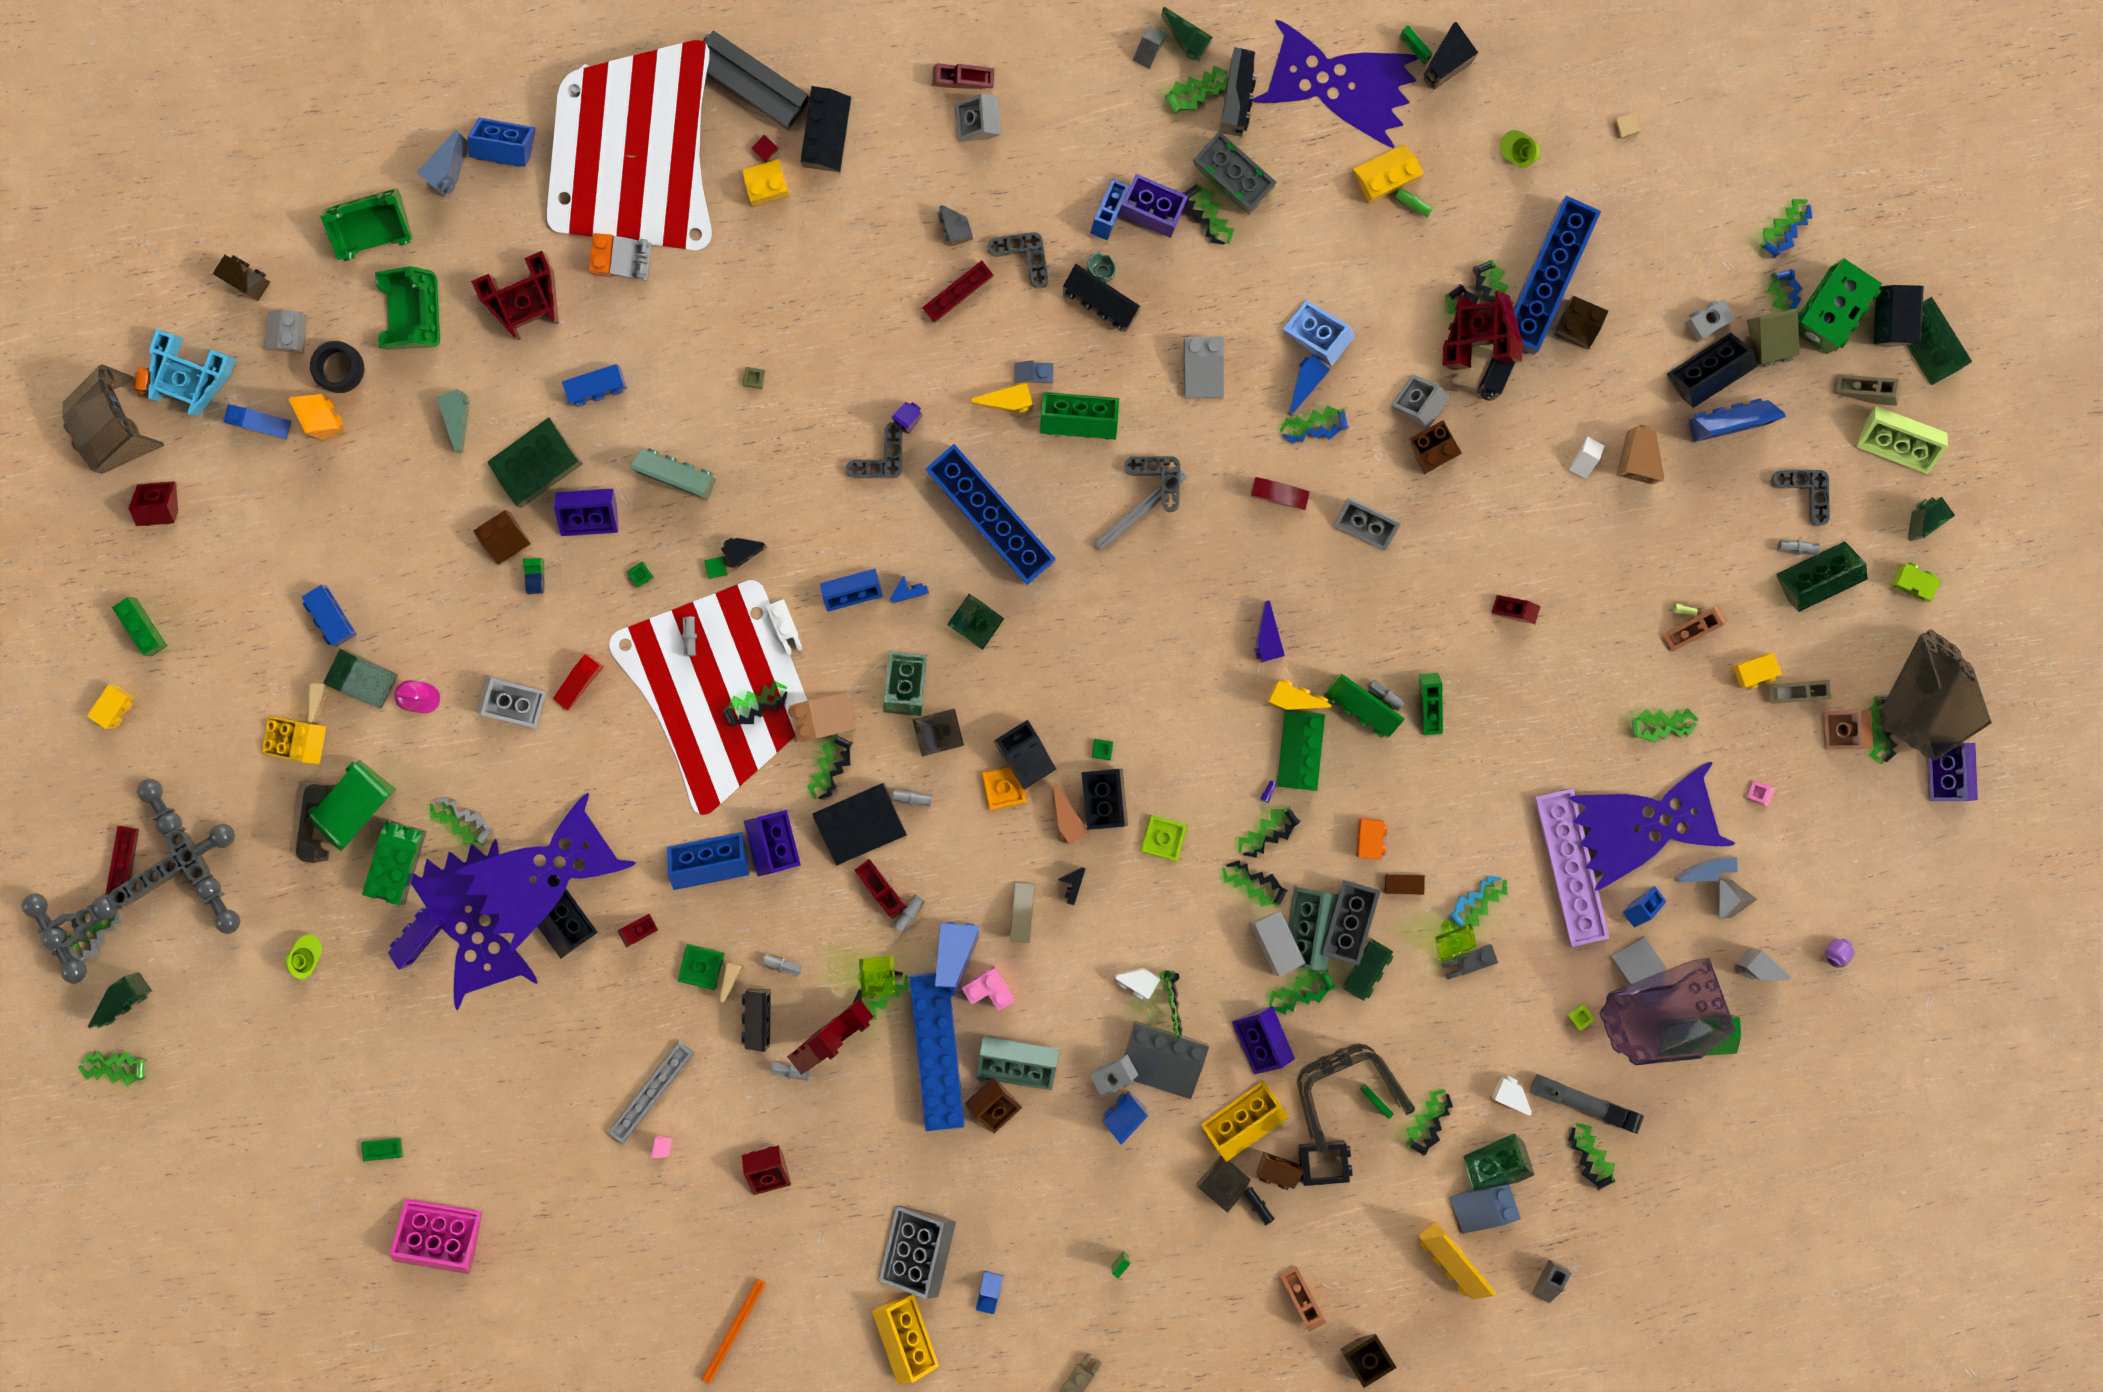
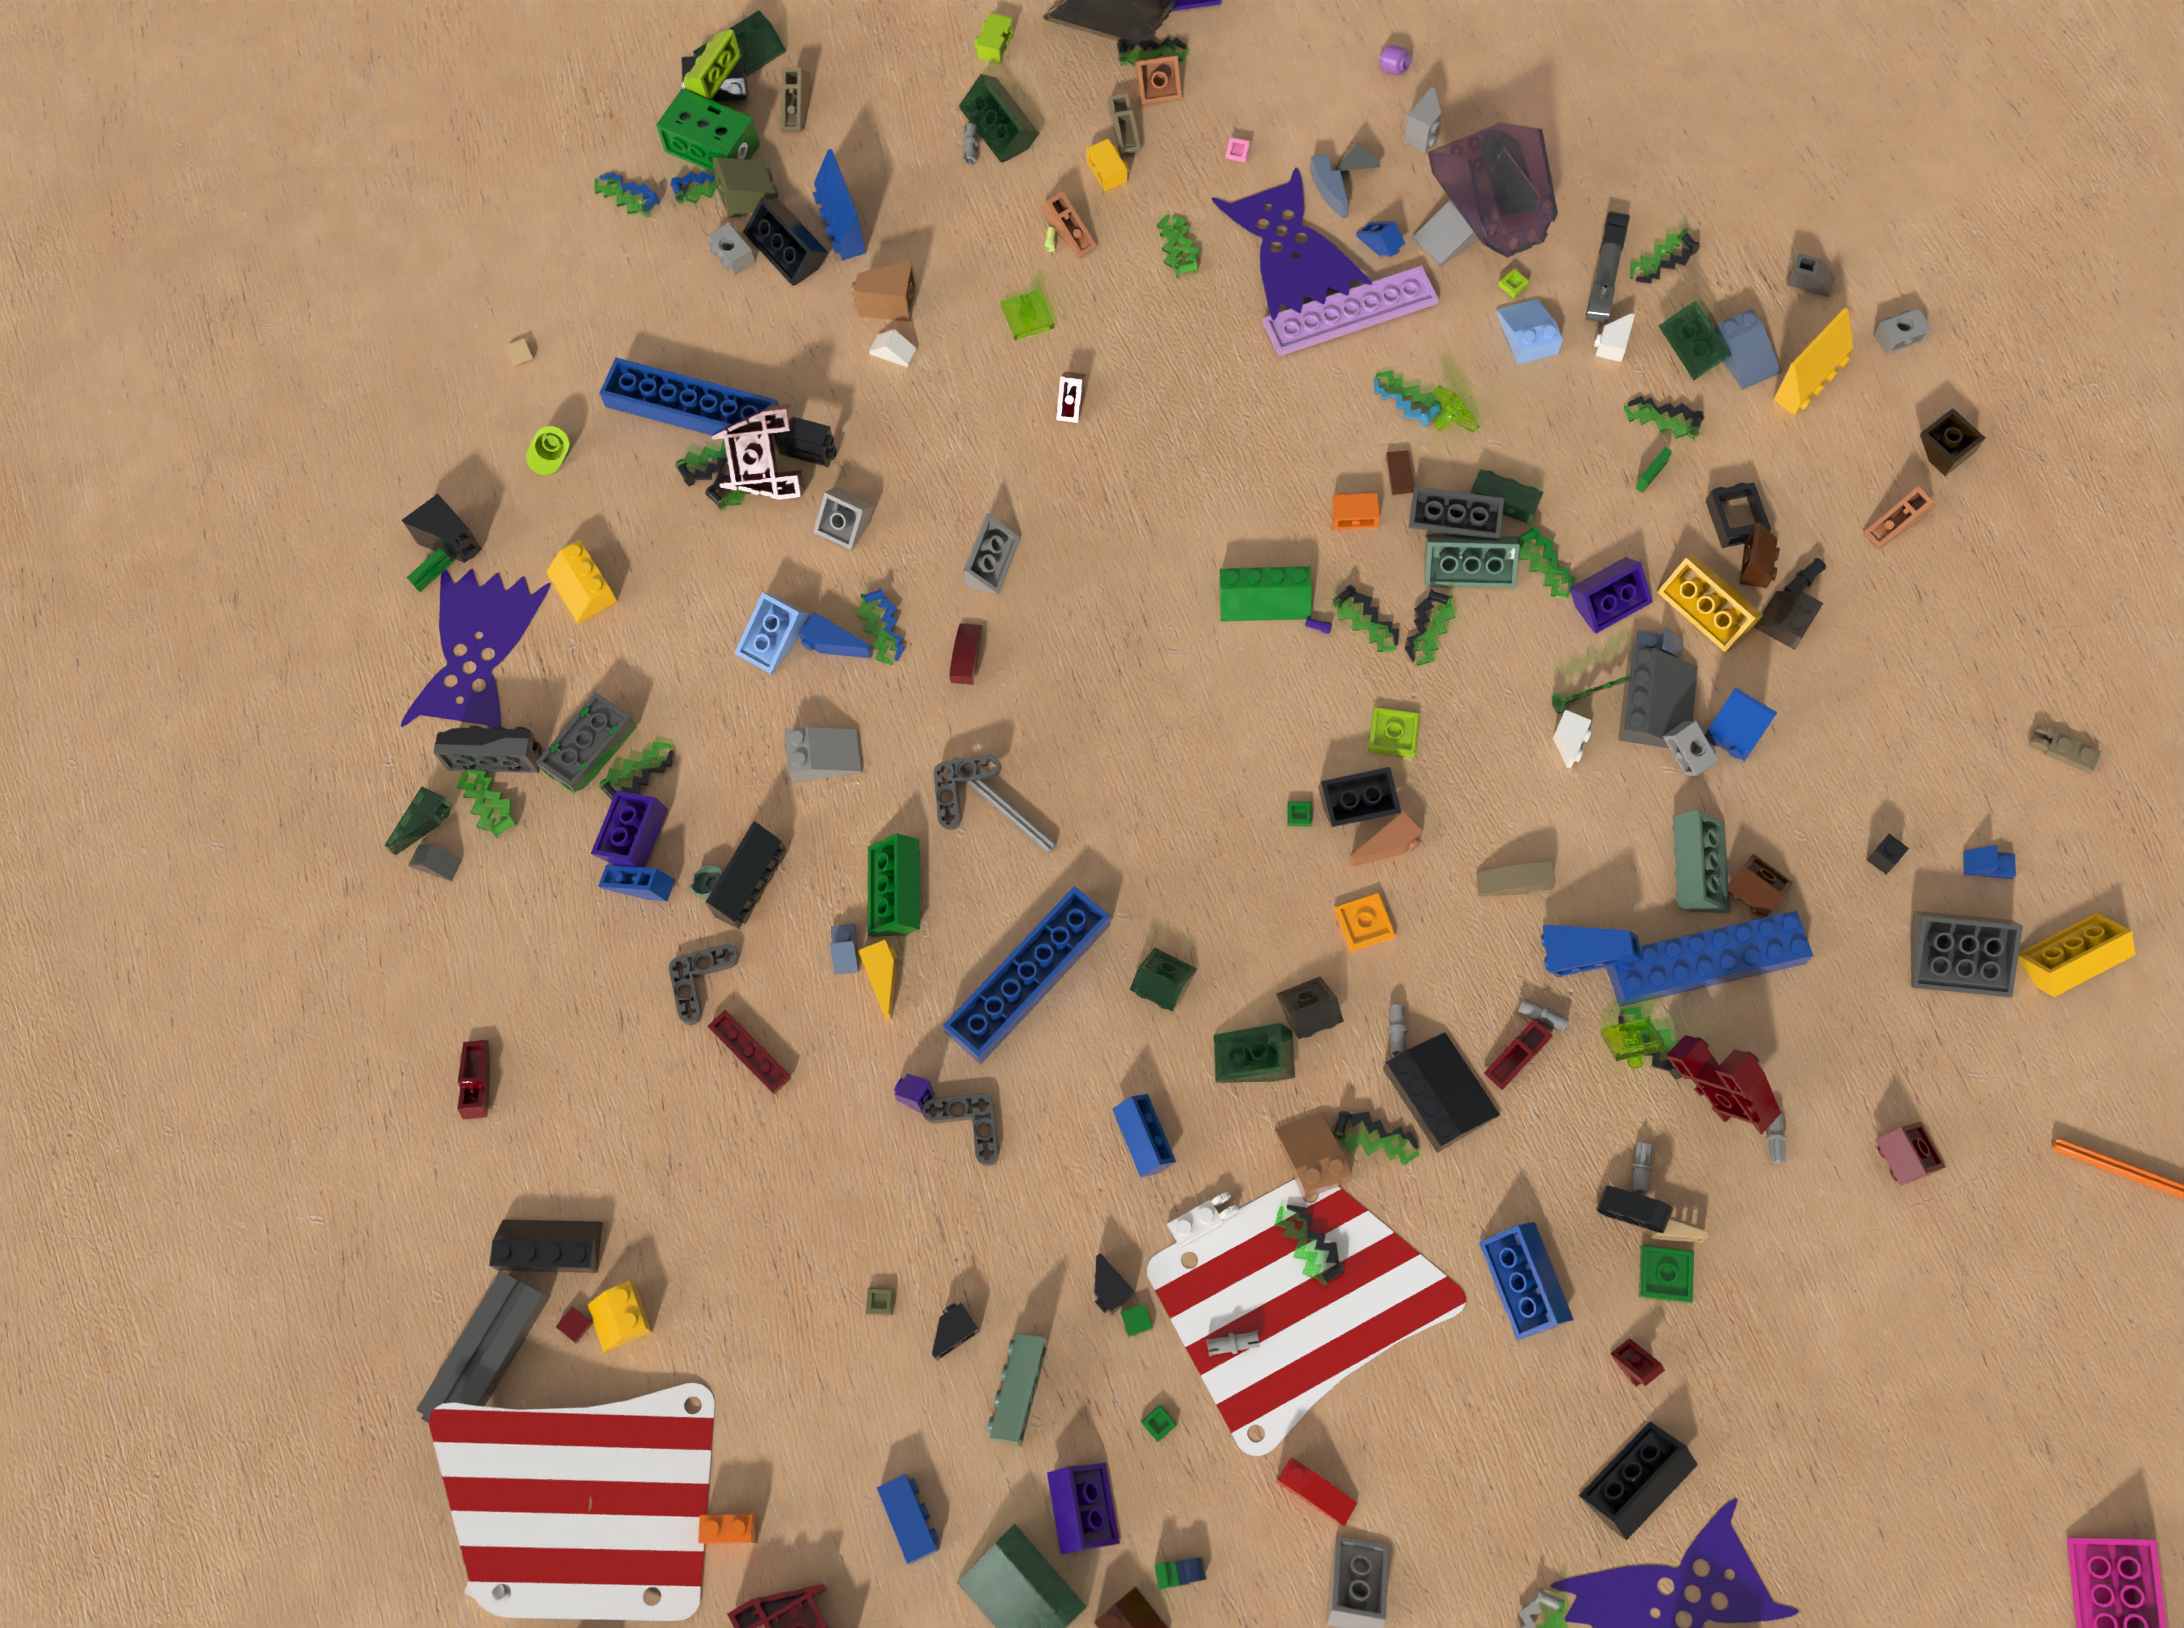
camera: 95 degrees left, 20 degrees down
(525, 903) = (1602, 1549): dark purple piece -> none
(630, 258) = (730, 1489): light grey hinge -> none
(651, 1092) = (1847, 1320): light grey tile -> none
(661, 1146) = (1915, 1297): bright pink slope -> none
(724, 430) = (953, 1330): none -> black slope
(747, 951) = (1634, 1209): none -> black beam
(756, 1019) = (1720, 1187): black slope -> none
(772, 843) = (1487, 1199): dark purple slope -> none
(902, 593) = (1137, 1072): blue slope -> none
(956, 226) = (665, 1063): flat silver slope -> none
(978, 118) = (527, 1053): light grey slope -> none
(989, 984) = (1612, 903): bright pink brick -> none
(1005, 1212) = (1887, 854): none -> black brick
(1025, 754) = (1318, 899): black slope -> none
(1074, 878) = (1463, 822): black slope -> none
(1120, 1264) = (1915, 712): green tile -> none
(1213, 1071) = (1665, 642): none -> sand blue slope
(1268, 638) = (1138, 644): dark purple slope -> none
(1277, 943) = (1496, 591): light grey slope -> none
(1289, 698) = (1205, 610): yellow slope -> none
(1334, 1063) = (1646, 547): clear smoke windscreen -> none
(1364, 706) = (1202, 532): green slope -> none
(1386, 695) = (1187, 514): light grey axle -> none
(1414, 202) = (613, 552): bright green pin -> none
(1431, 703) = (1187, 467): green slope -> none
(1434, 447) = (897, 495): reddish brown slope -> none
(1471, 961) = (1474, 396): dark grey hinge -> none
(1486, 1359) = (1902, 331): none -> light grey brick
(1532, 1021) = (1530, 331): none -> light blue slope
(1580, 322) = (741, 367): dark brown slope -> none
(1607, 580) = (1027, 314): none -> clear neon green tile
(1809, 482) = (900, 141): dark grey beam -> none
(1902, 313) = (713, 65): none -> lime slope
(1902, 440) = (846, 65): yellowish green slope -> none
(1928, 517) = (926, 30): clear green slope -> none

